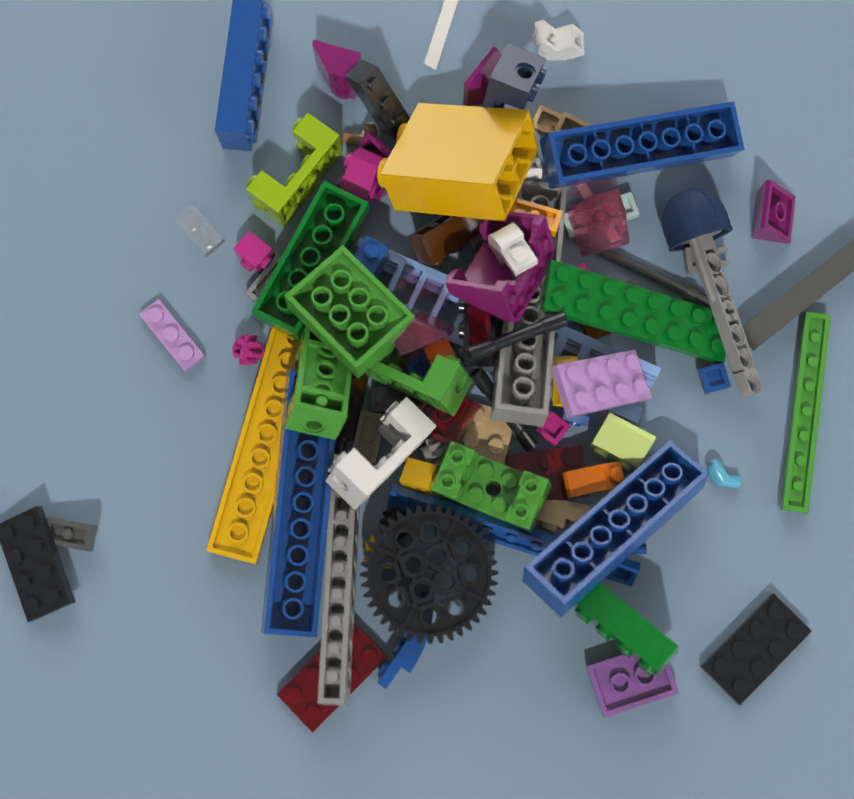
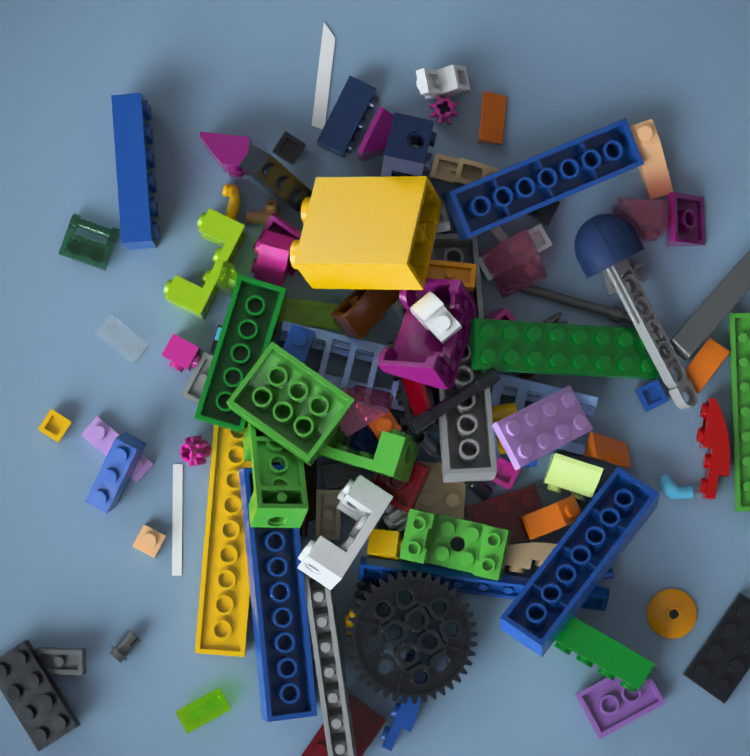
camera: 10 degrees left, 5 degrees up
(115, 301) = (55, 425): none -> yellow plate
(137, 532) = (125, 646): none -> dark grey pin
(163, 354) = (115, 472): none -> brick
(182, 139) = (85, 249): none -> clear green plate
(185, 431) = (149, 541): none -> light nougat plate
(203, 611) = (203, 710): none -> clear neon green plate
(217, 416) = (177, 520): none -> white sticker
(310, 182) = (227, 278): none -> clear neon green plate
(335, 113) = (234, 200): none -> yellow arm
(388, 235) = (309, 313): none -> clear neon green plate
(399, 78) = (289, 148): none -> black plate
(459, 59) = (348, 117): none -> dark blue brick
(560, 72) = (439, 105): none -> dark pink gear
(600, 86) = (492, 118): none -> orange slope
(636, 183) = (545, 213): none -> black plate
(661, 423) = (607, 450): none -> orange slope
(686, 604) = (659, 610): none -> light orange dish
(739, 198) = (645, 216): none -> clear pink slope
(752, 160) = (654, 170): none -> light nougat slope
(772, 433) = (715, 438): none -> red slope
(774, 356) = (706, 363): none -> orange slope

